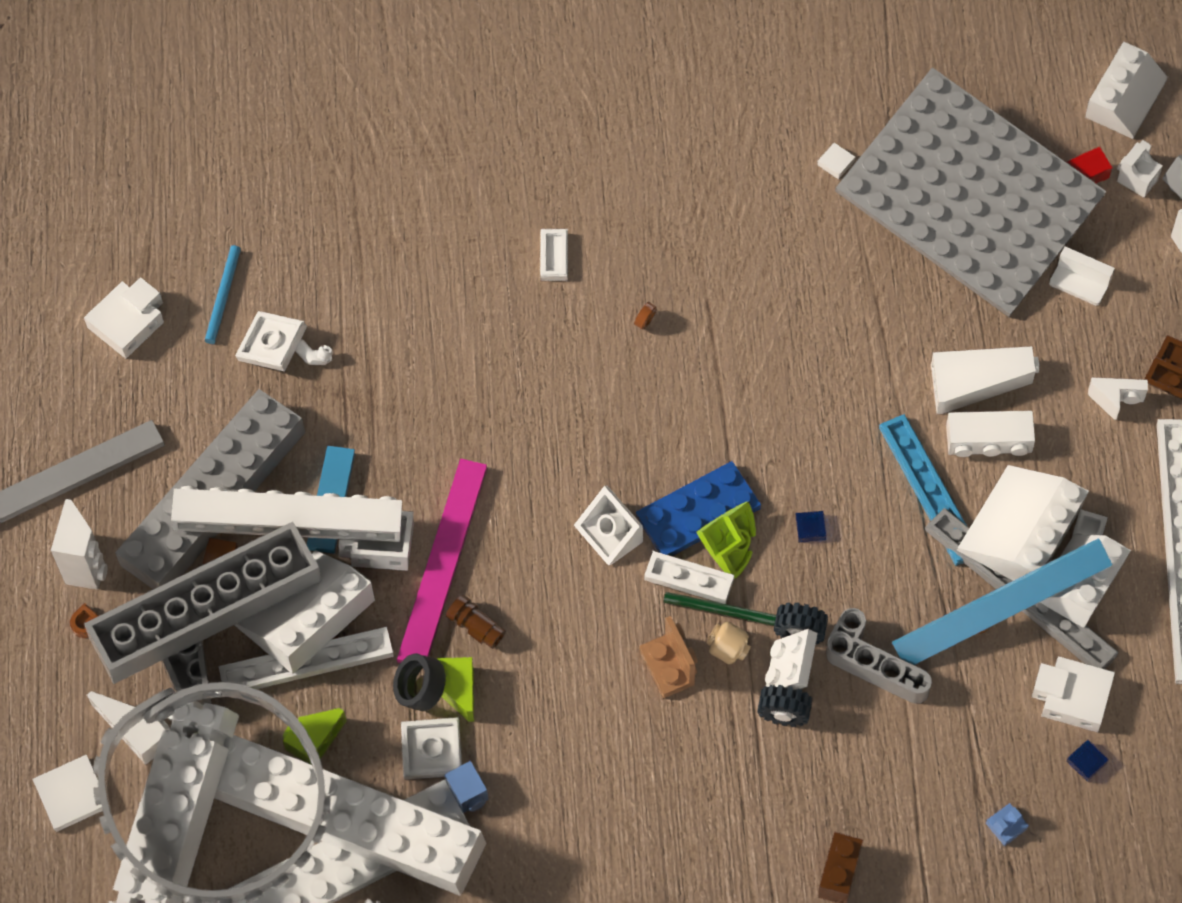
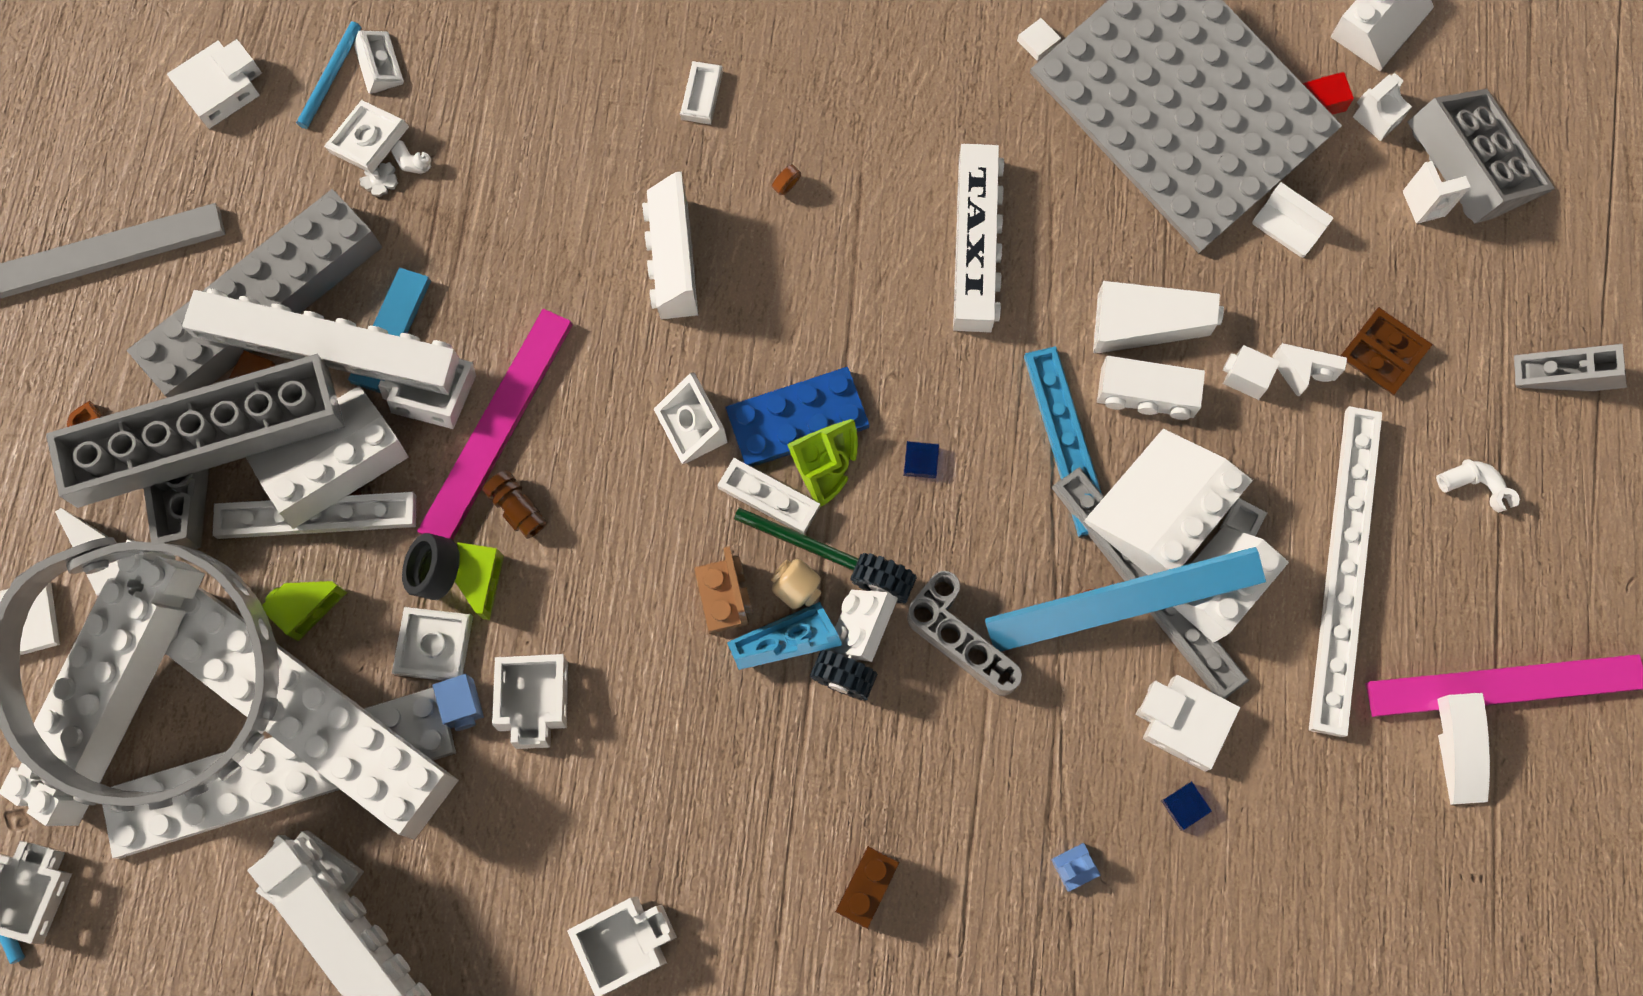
camera: 10 degrees right, 10 degrees up
(77, 550) = (81, 336): white slope -> none
(262, 275) = (377, 60): none -> white slope
(291, 376) = (380, 180): none -> white plant
(527, 773) = (530, 698): none -> white piece
(561, 389) = (671, 249): none -> white slope
(731, 685) = (786, 638): none -> dark azure wing
(818, 336) = (976, 238): none -> white brick
(1070, 406) = (1250, 371): none -> white brick

